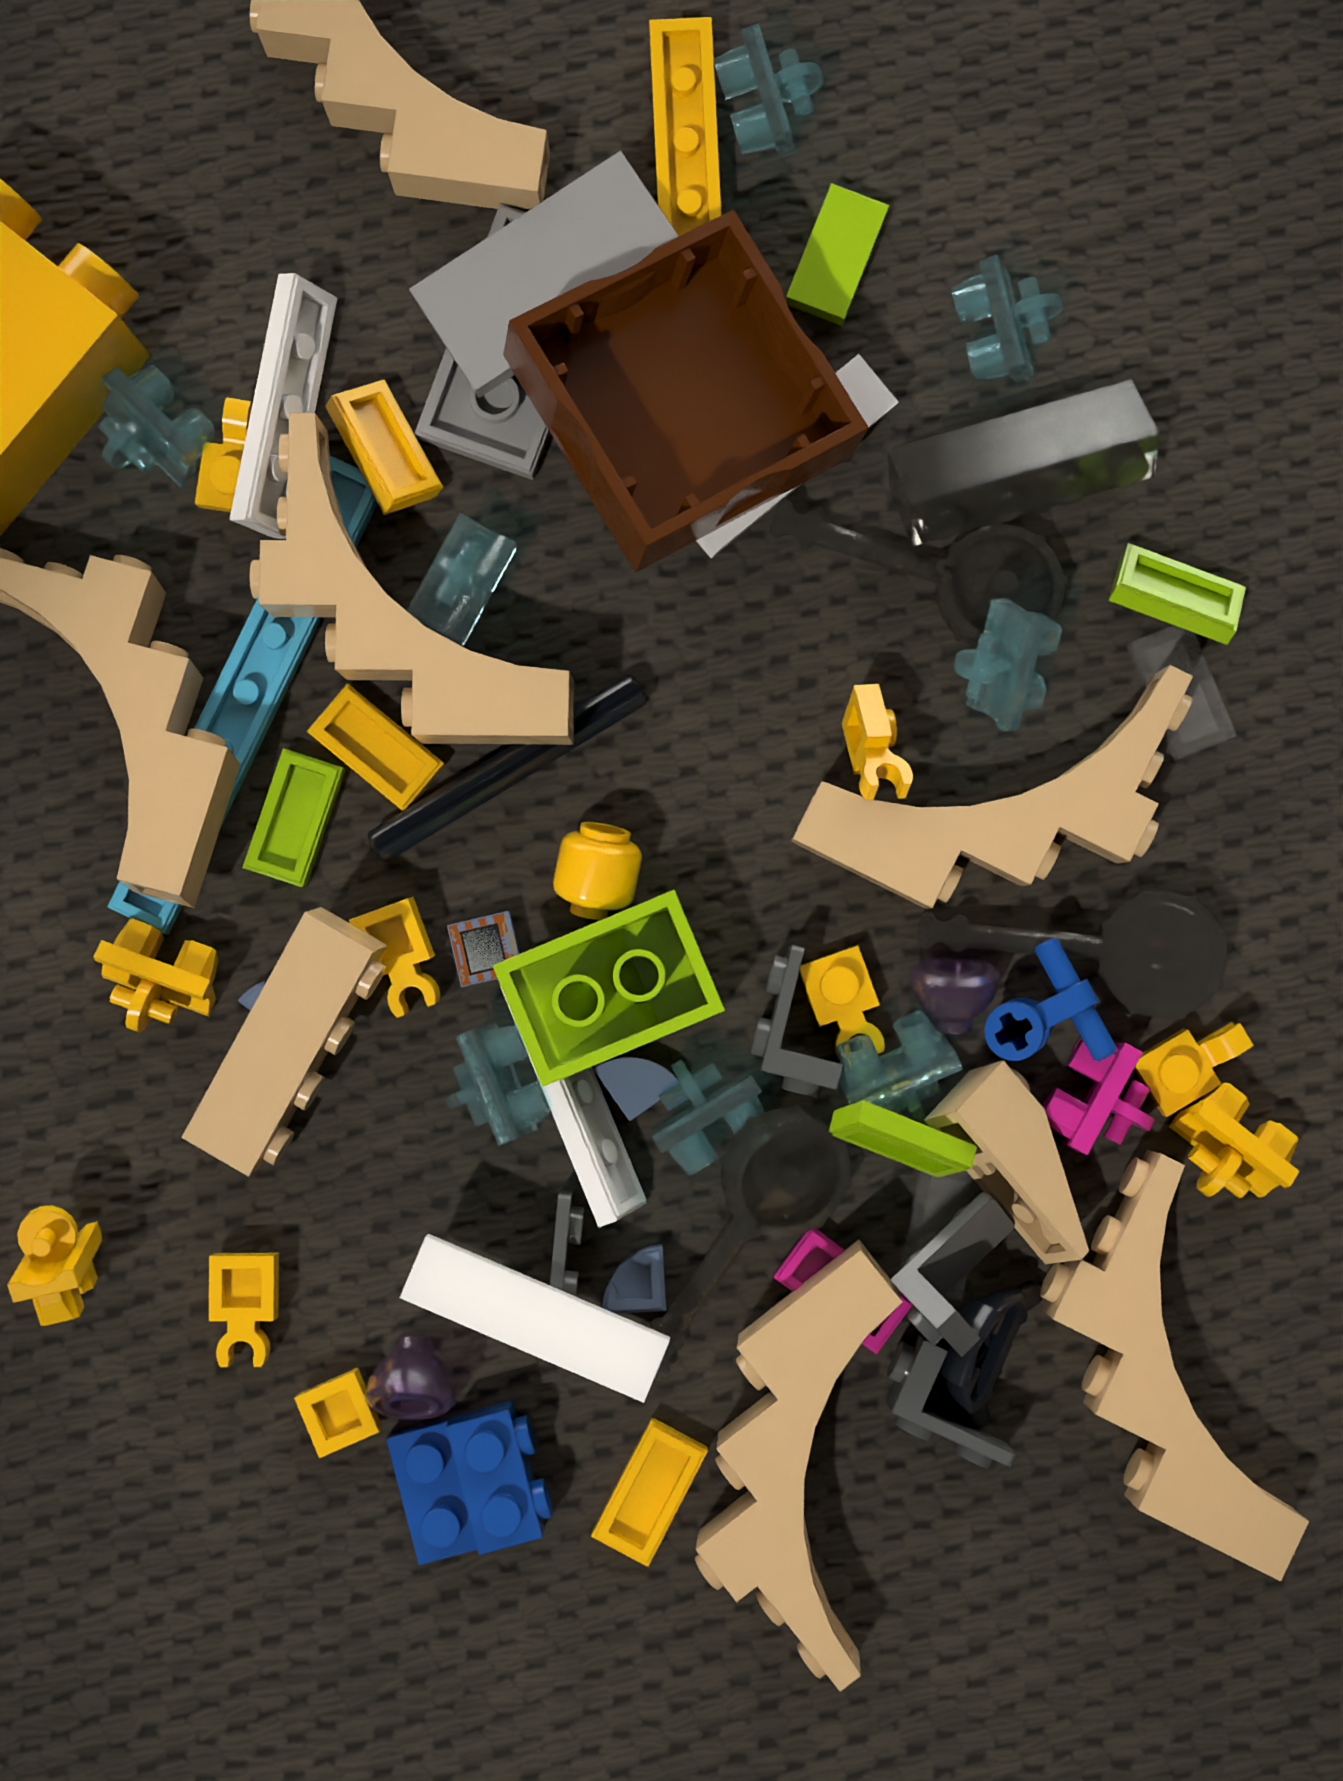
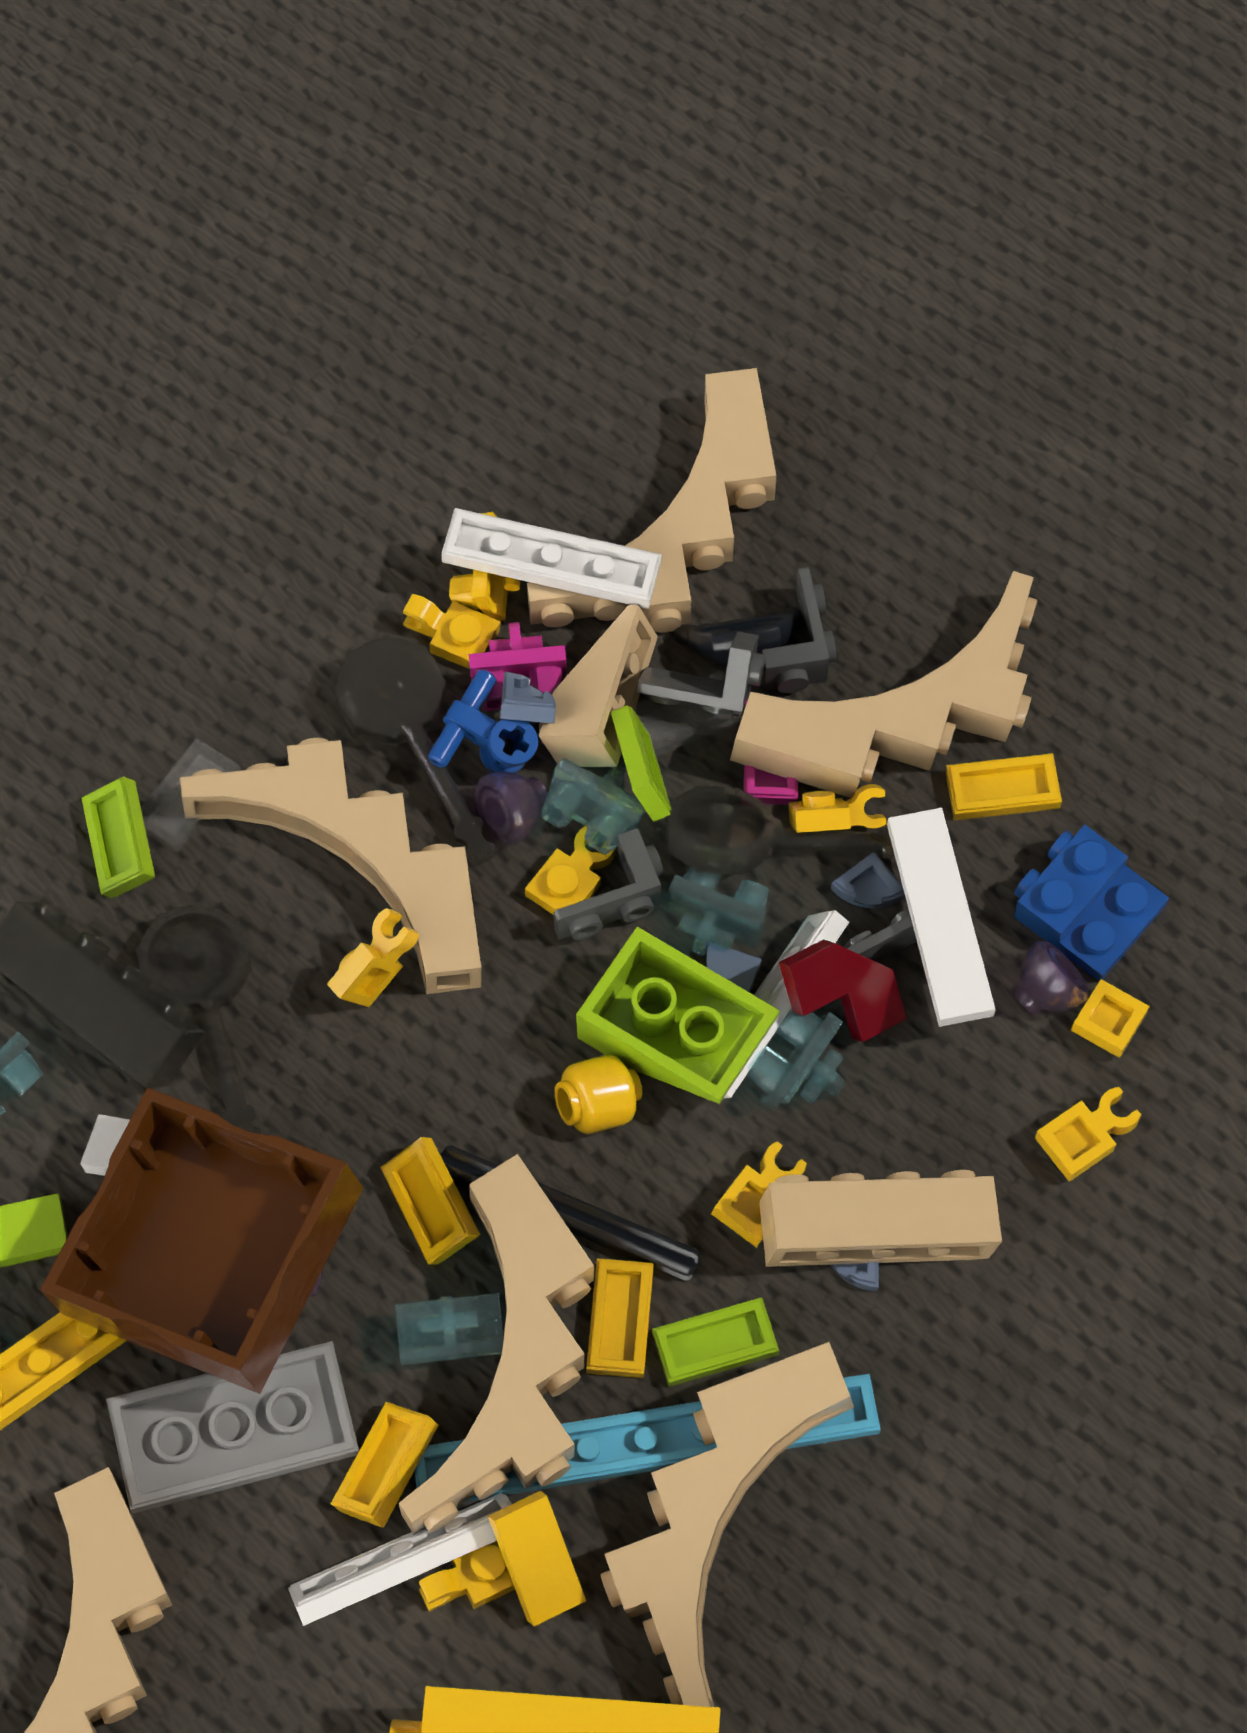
camera: 125 degrees left, 20 degrees down
(55, 1264) = (1157, 1266): yellow hips -> none
(134, 965) = (893, 1330): yellow hips -> none
(143, 433) = (498, 1646): clear light blue hips -> none
(197, 515) = (537, 1558): none -> yellow tile
(481, 944) = (712, 1140): tile -> none
(551, 1167) = (834, 972): none -> dark red tile
(572, 237) = (167, 1422): light grey tile -> none
(603, 647) = (430, 1201): none -> yellow tile
(730, 1294) = (823, 812): none -> yellow plate
(1004, 663) = (250, 908): clear light blue hips -> none
(1049, 1070) = (524, 701): none -> sand blue tile
(1193, 1206) = (551, 558): none -> white tile

